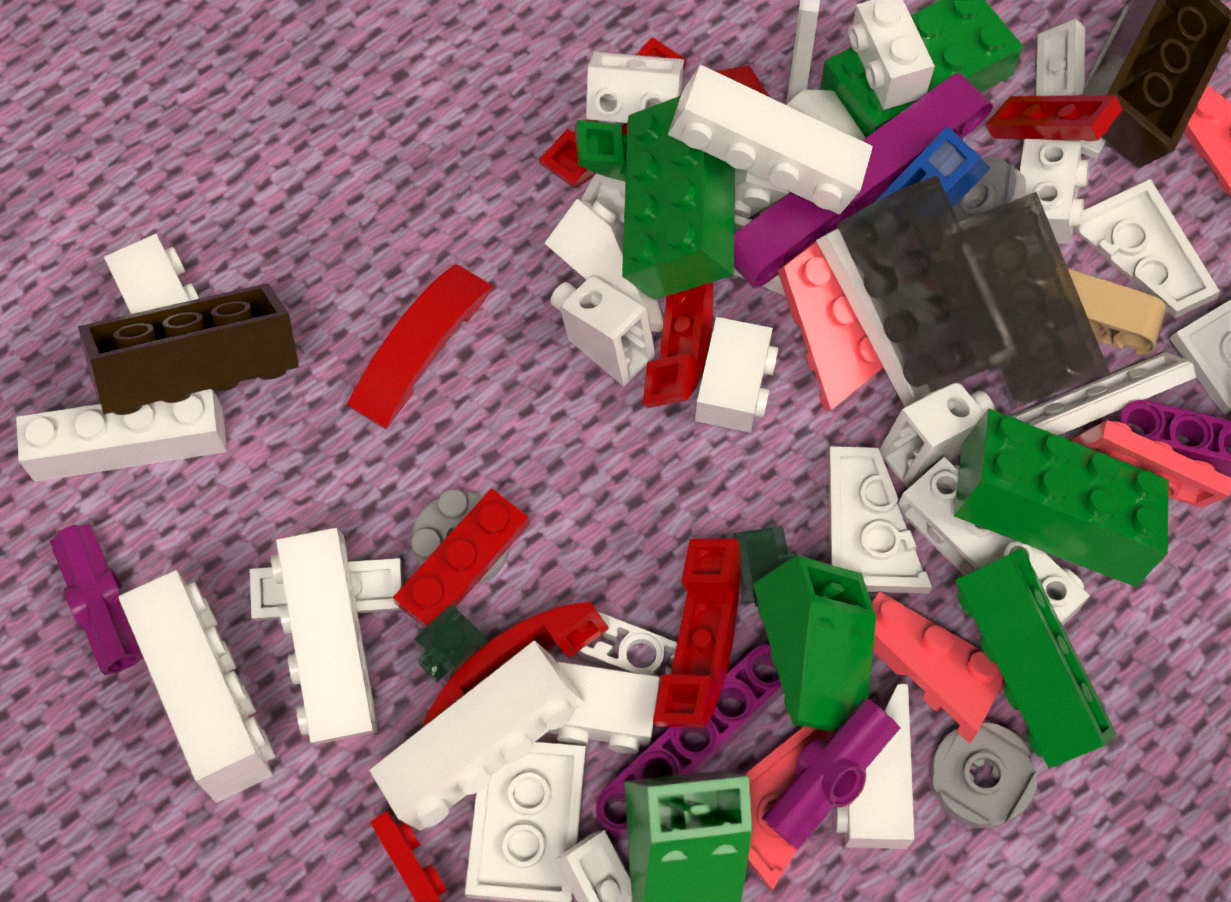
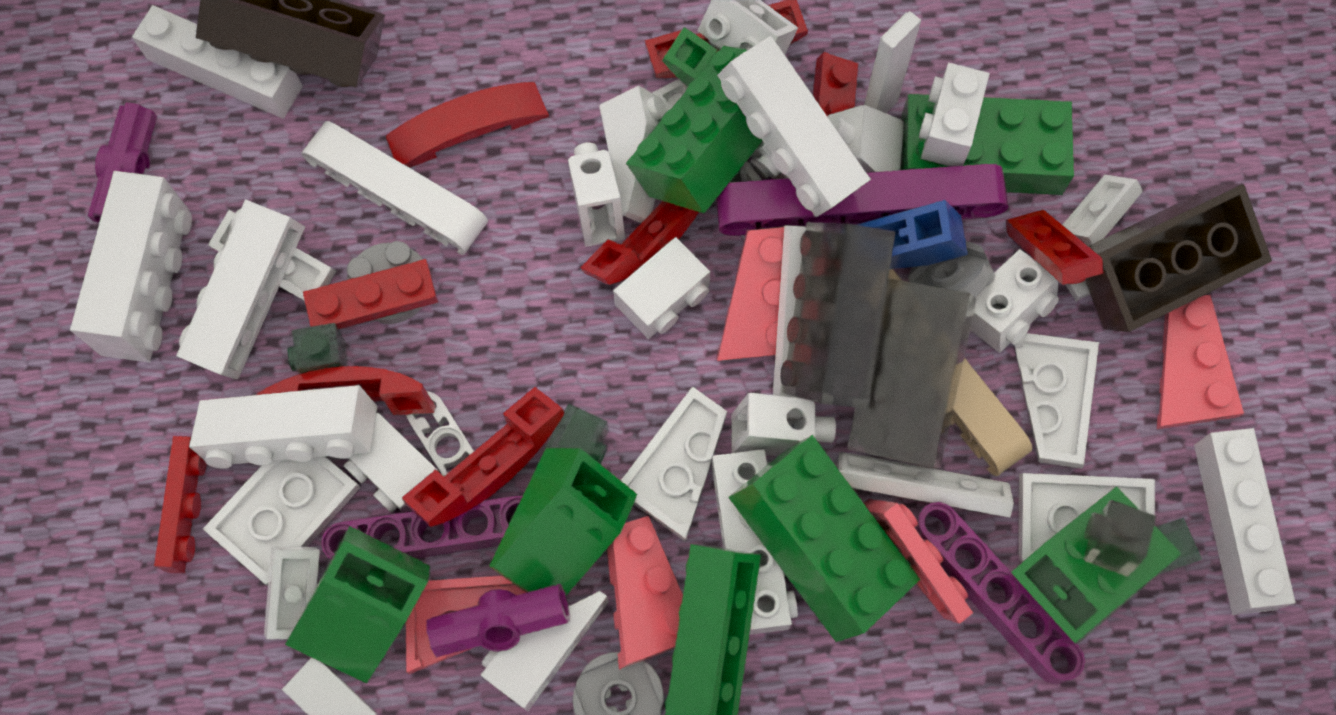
camera: 35 degrees right, 5 degrees up
(397, 443) = (396, 186): none -> white beam

